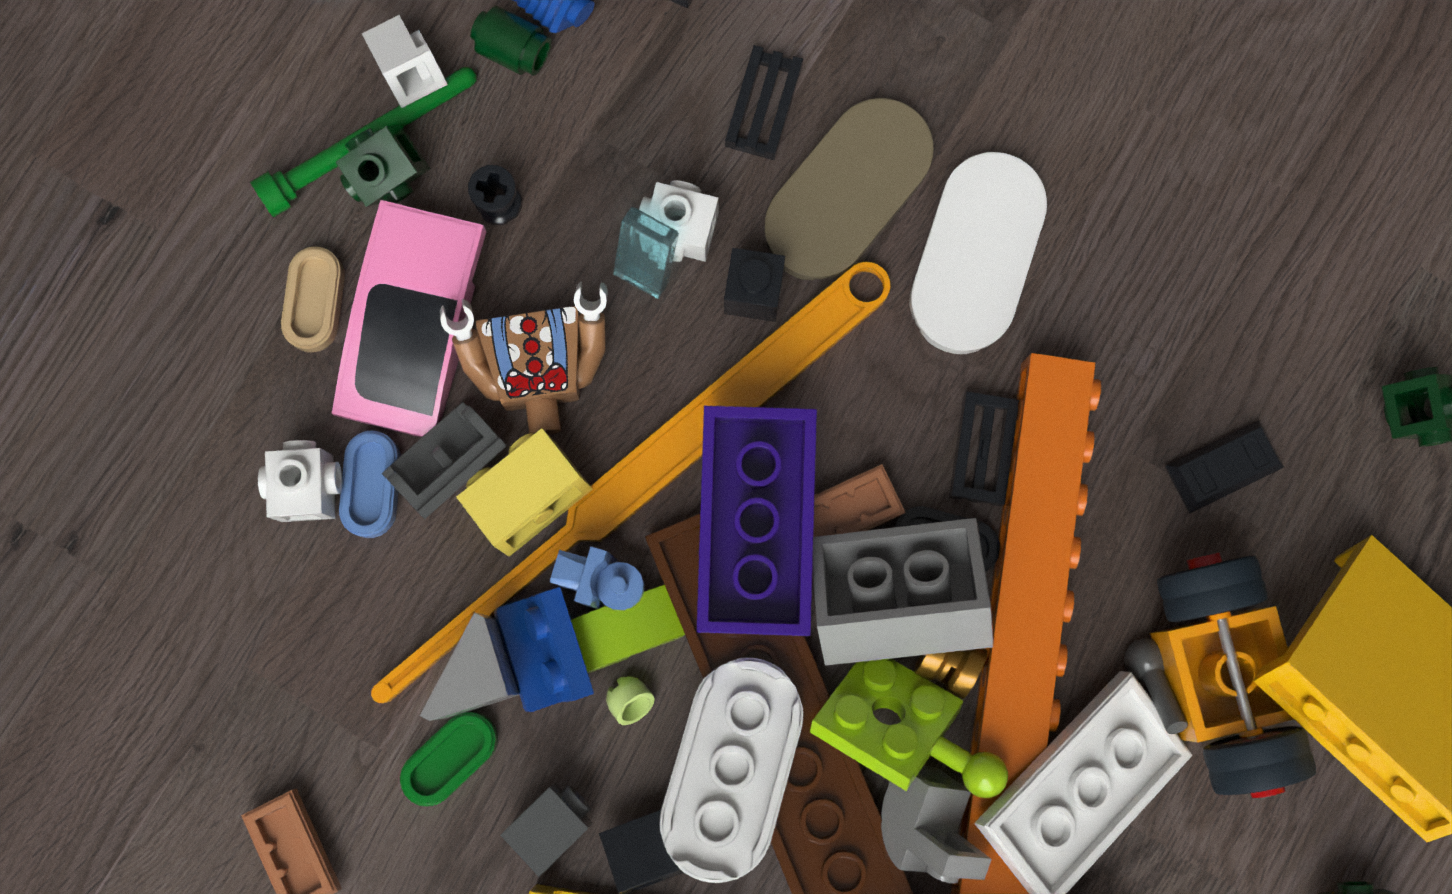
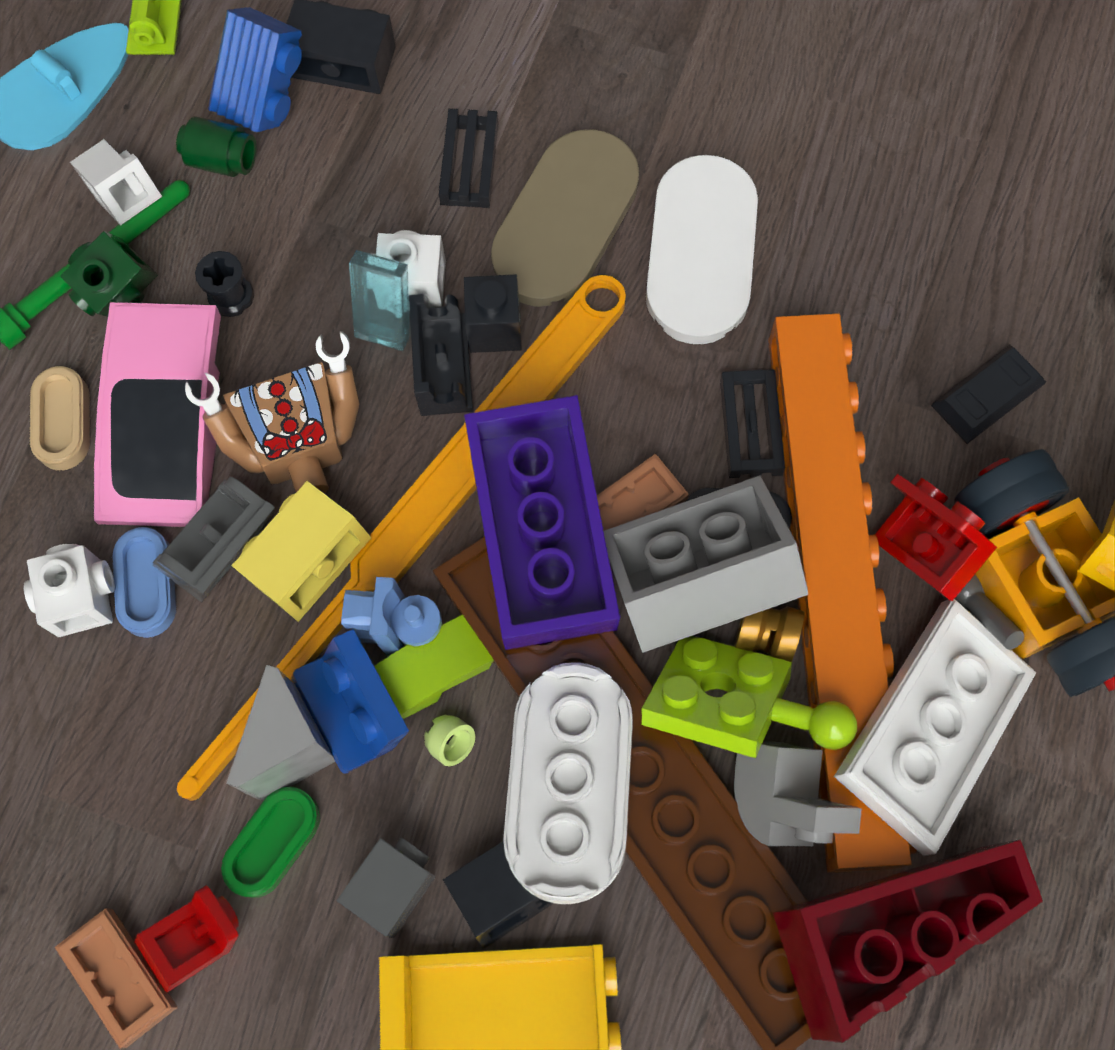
camera: 10 degrees left, 10 degrees down
(362, 833) = (189, 938): none -> red bracket
(694, 317) = (440, 357): none -> black hinge
(1125, 614) = (933, 540): none -> red bracket

